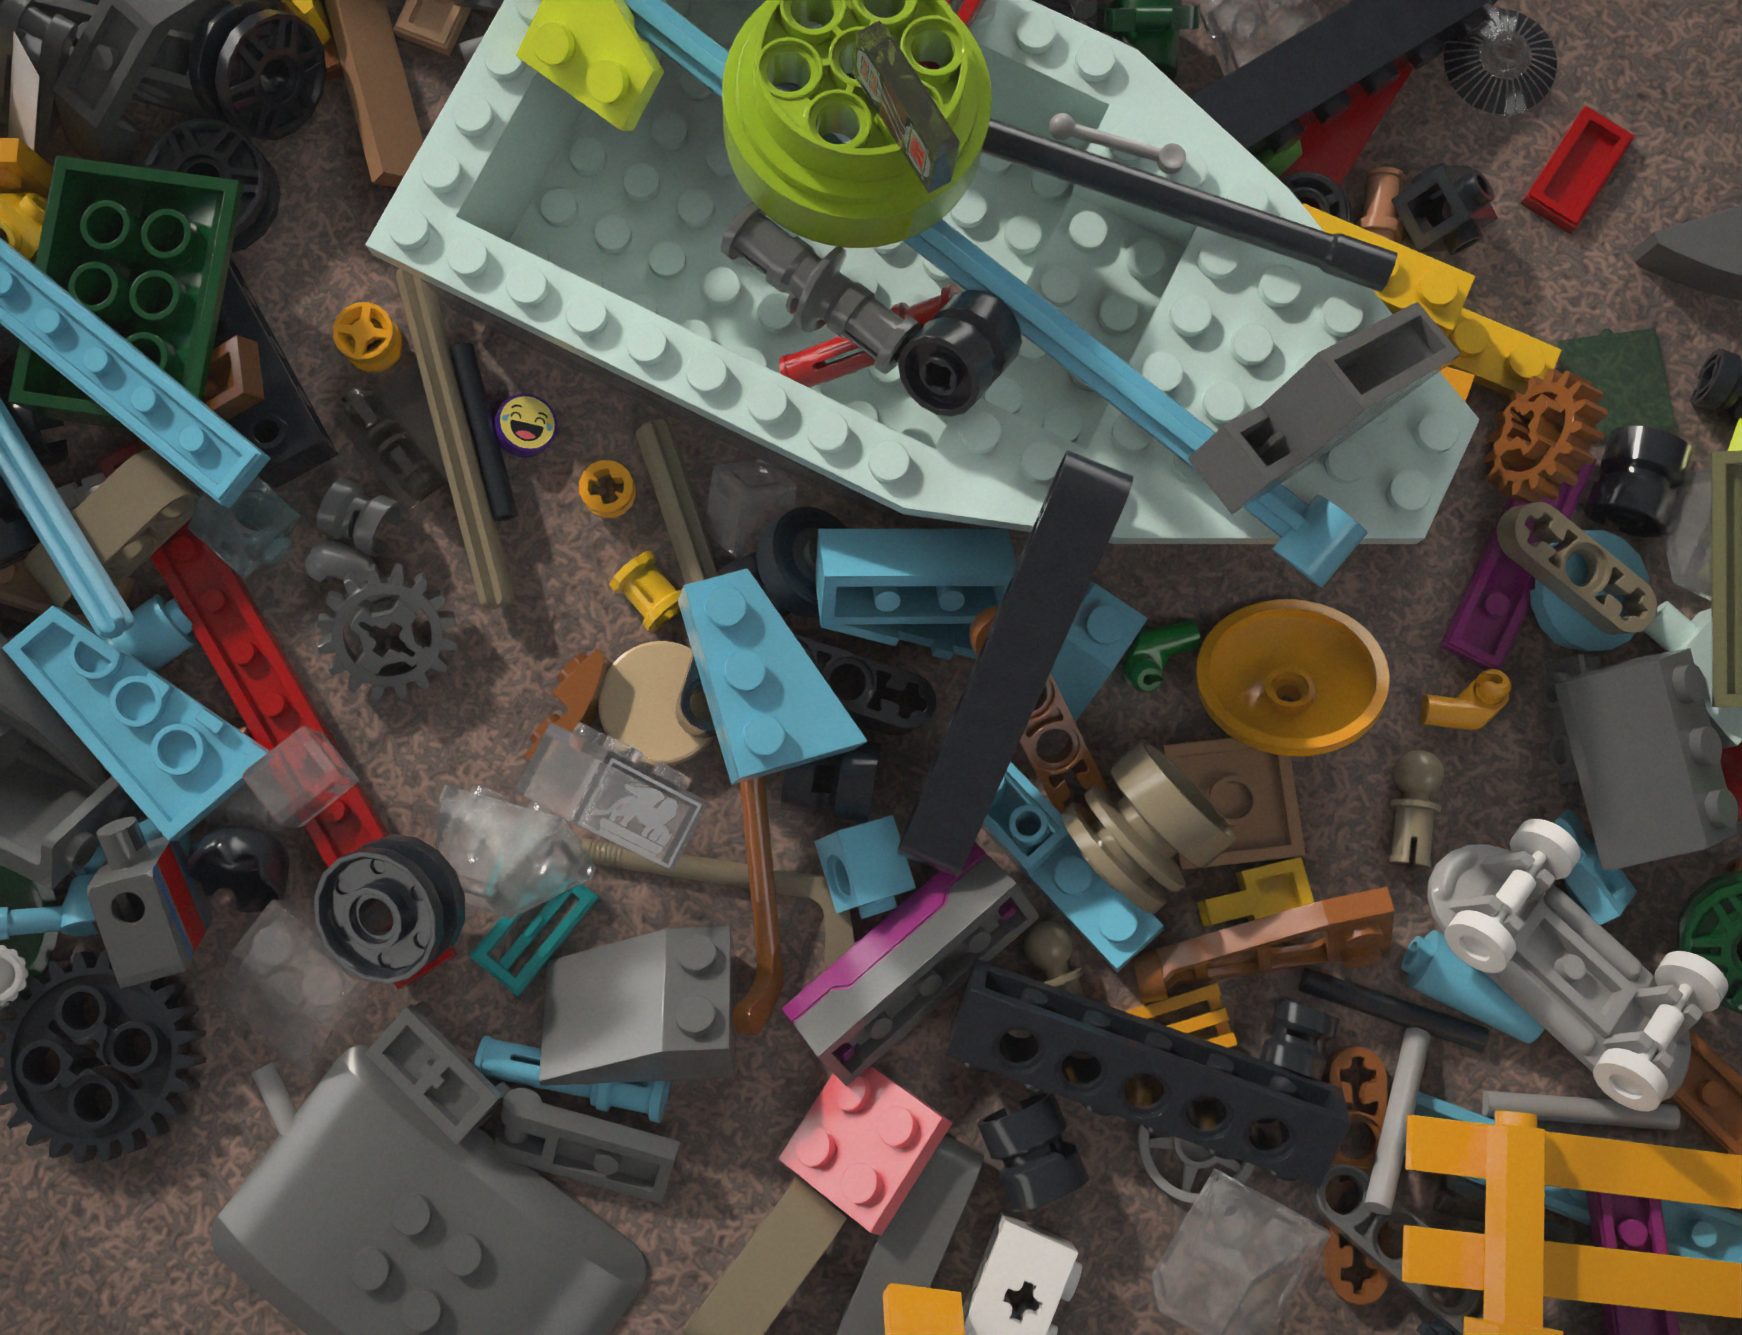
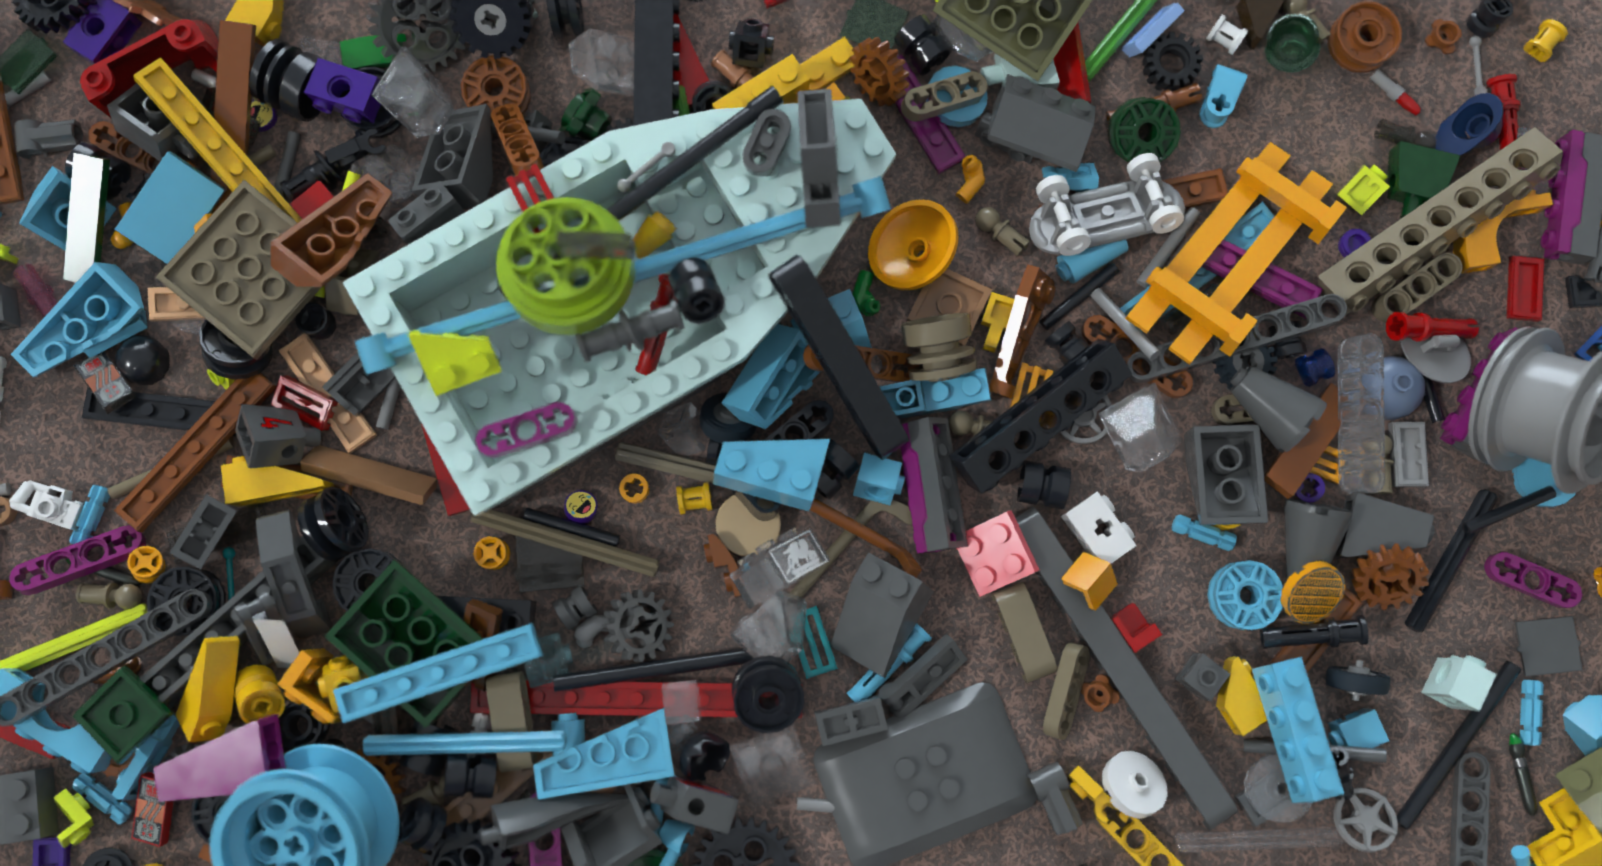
camera: 55 degrees left, 0 degrees up
(323, 689) = (650, 669): none -> black piece
(542, 204) = (504, 446): none -> magenta beam
(1014, 230) = (653, 234): none -> yellow cone
(1289, 308) = (766, 144): none -> dark grey plate

